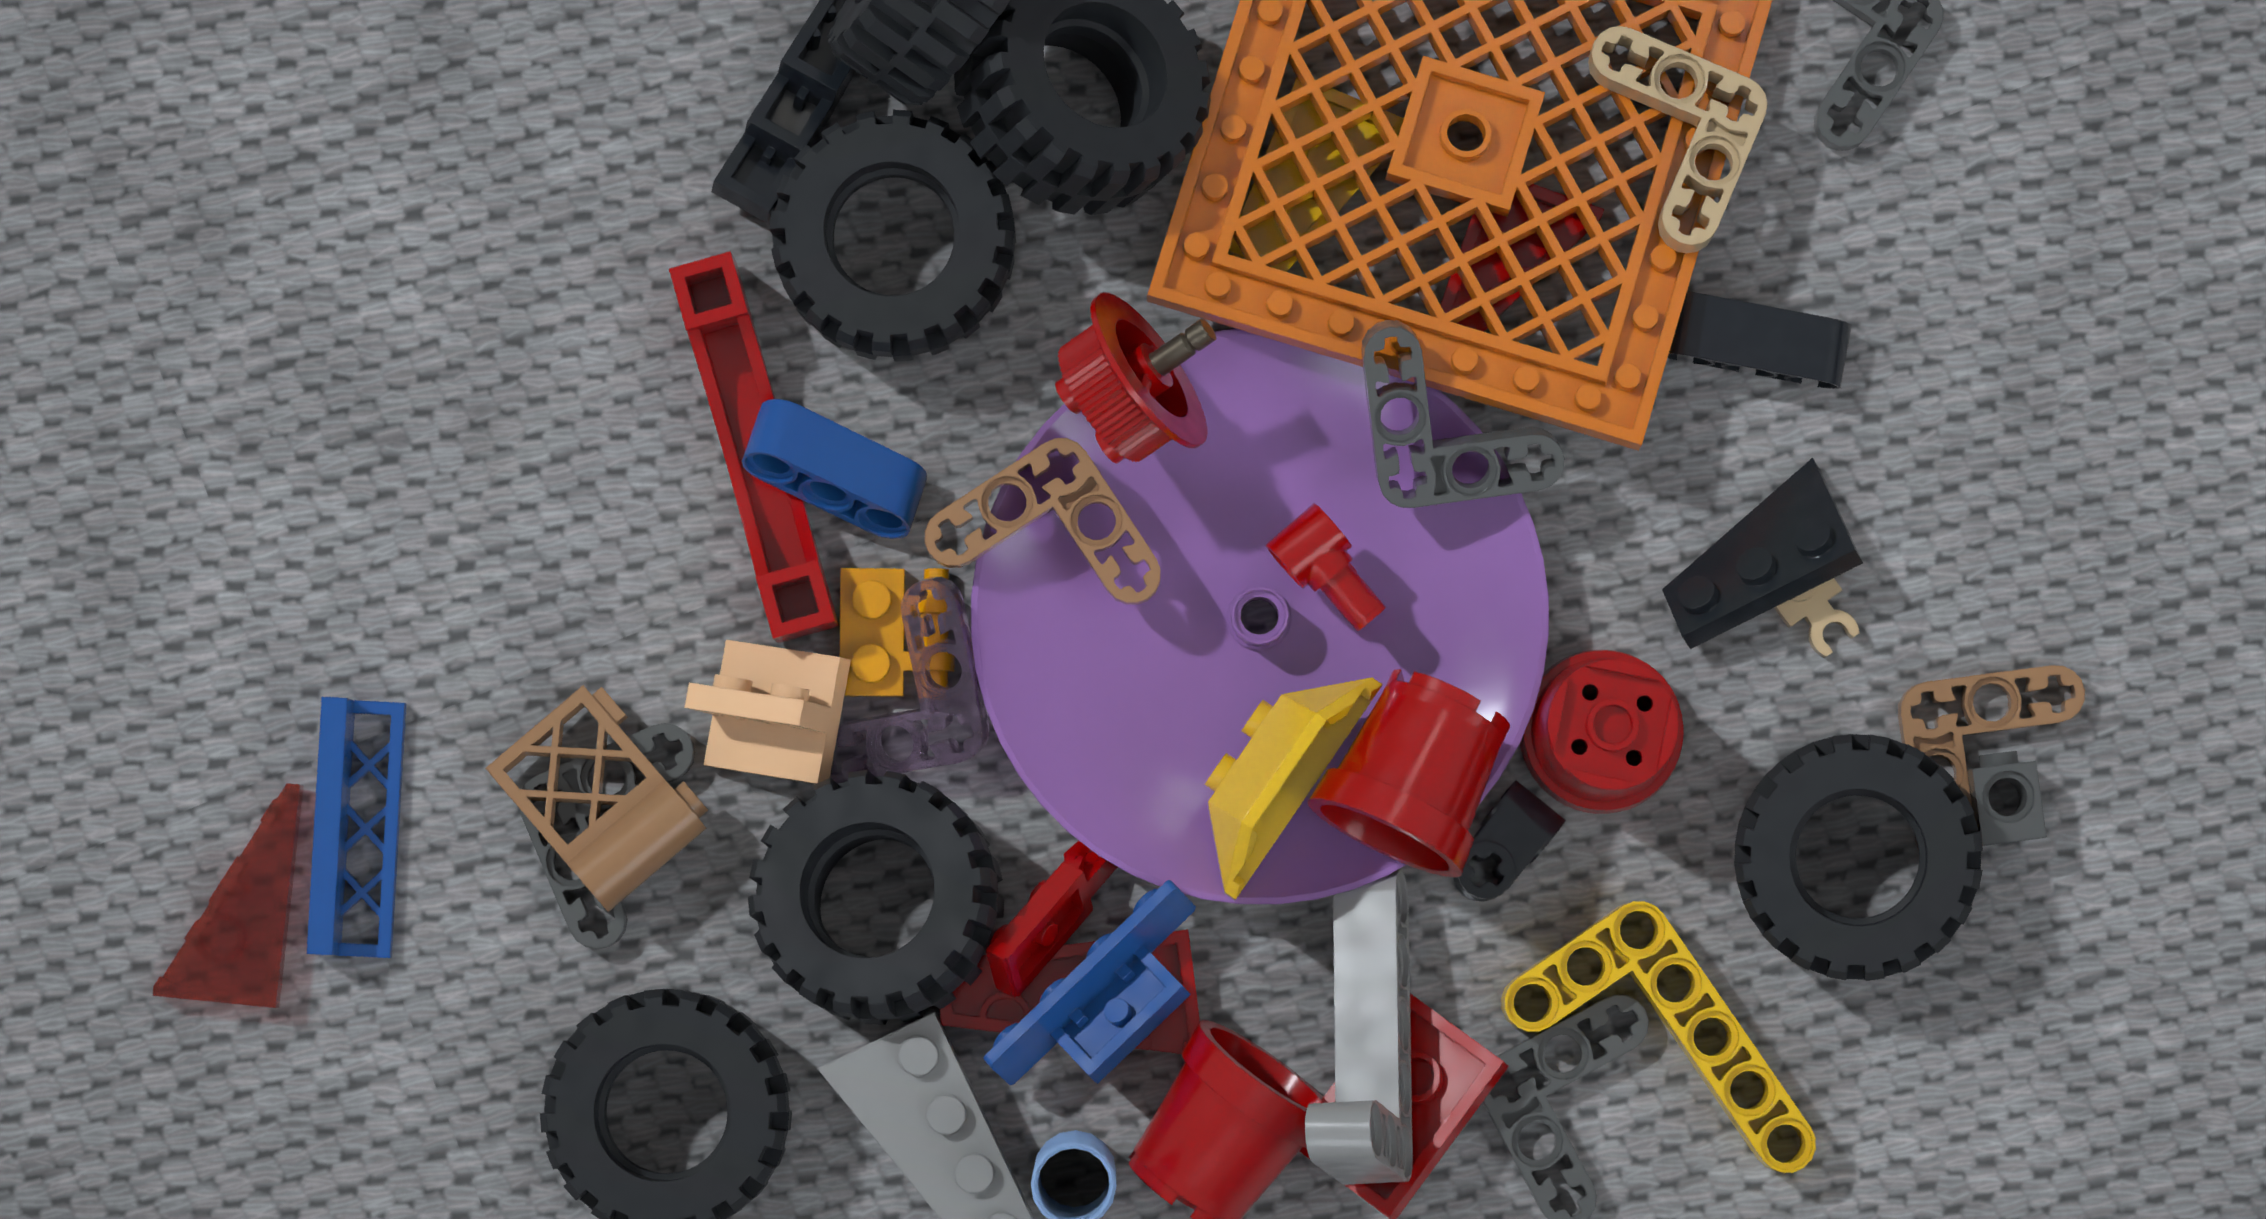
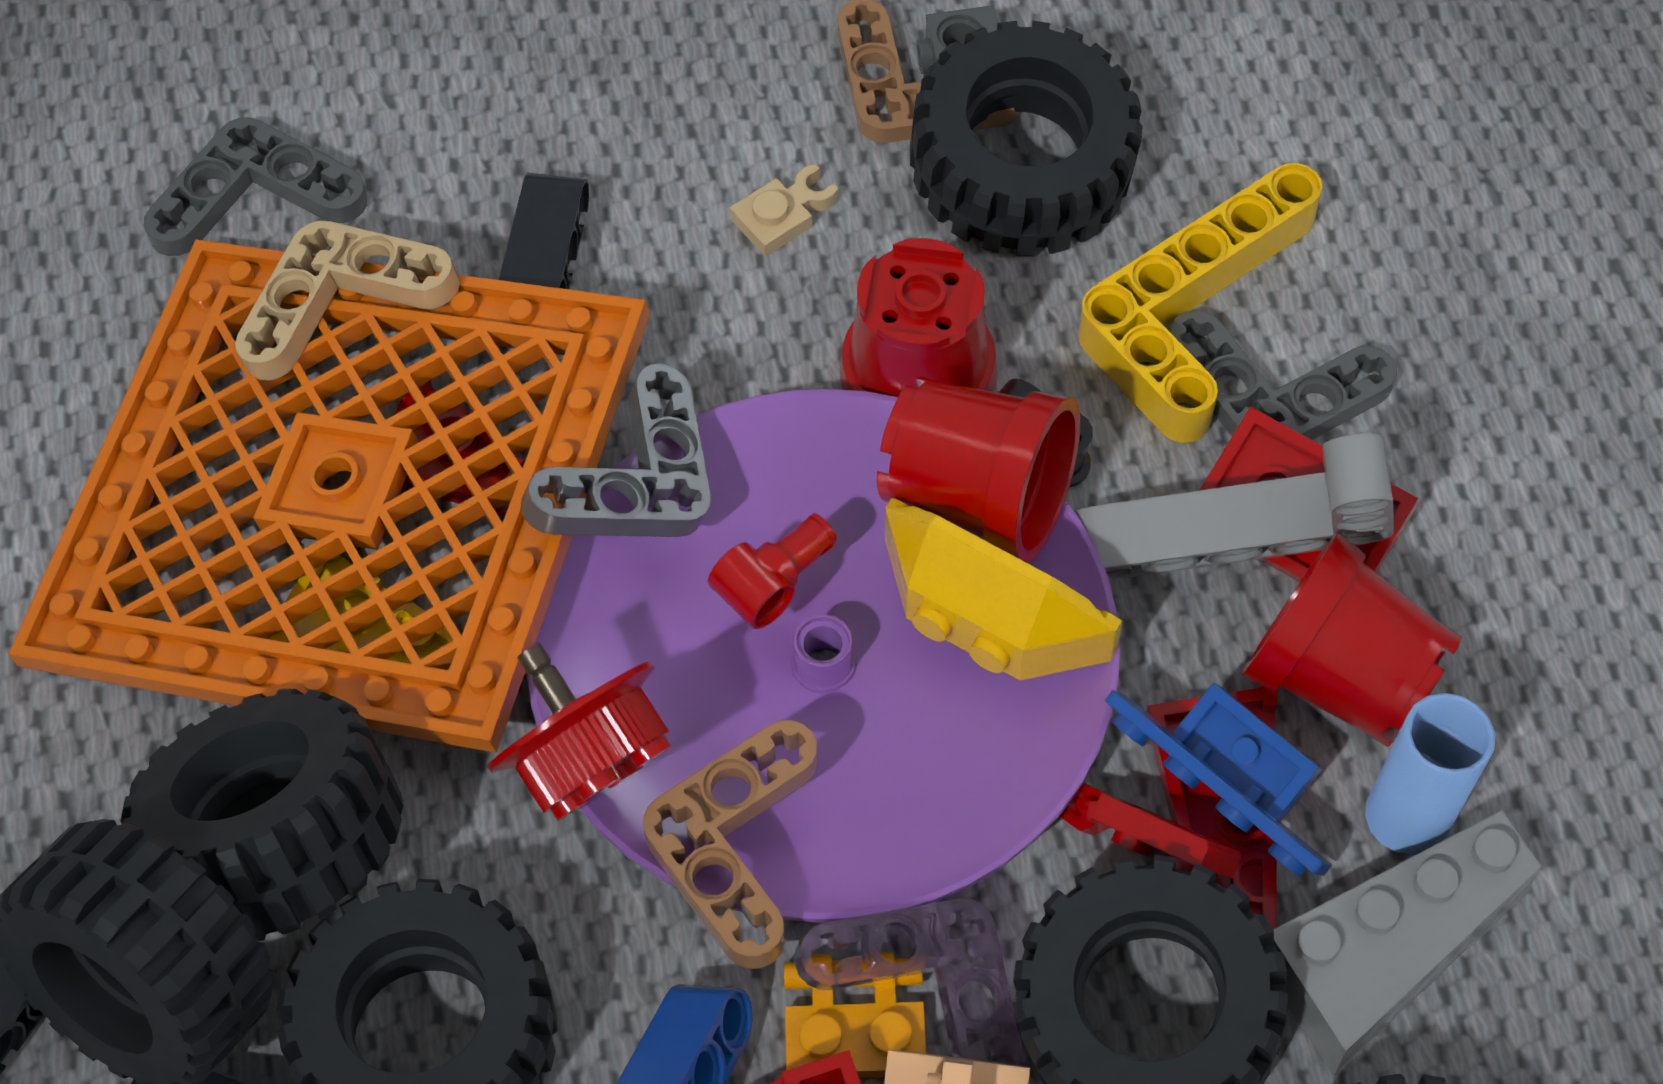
camera: 95 degrees left, 25 degrees down
(1764, 560) = (750, 230): black wing -> none

